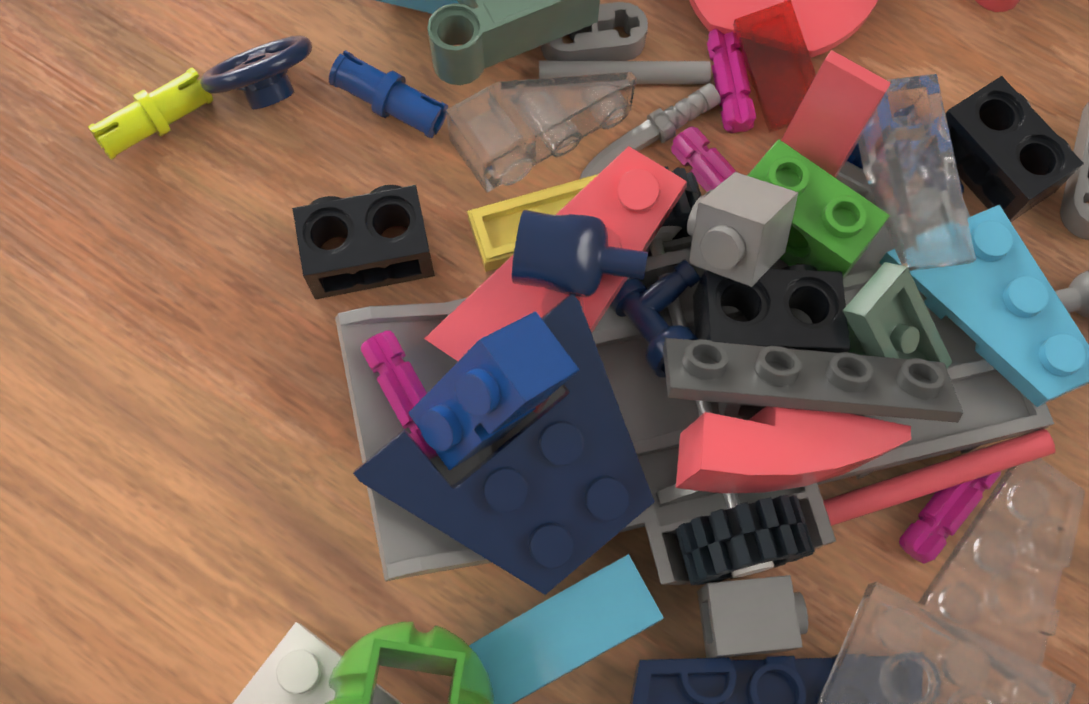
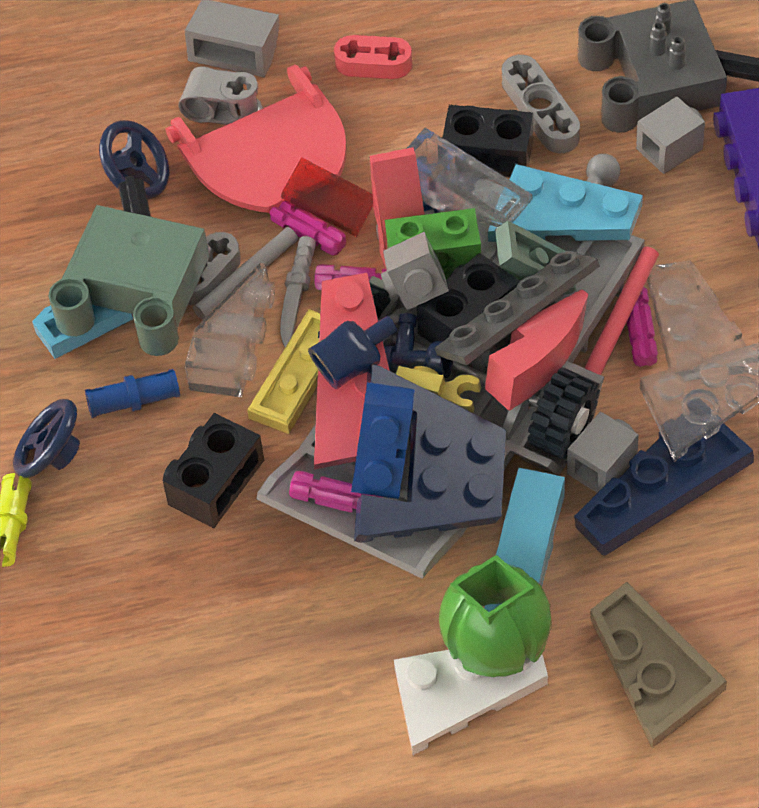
camera: 40 degrees left, 15 degrees down
(625, 366) = (435, 383): none -> light yellow plate

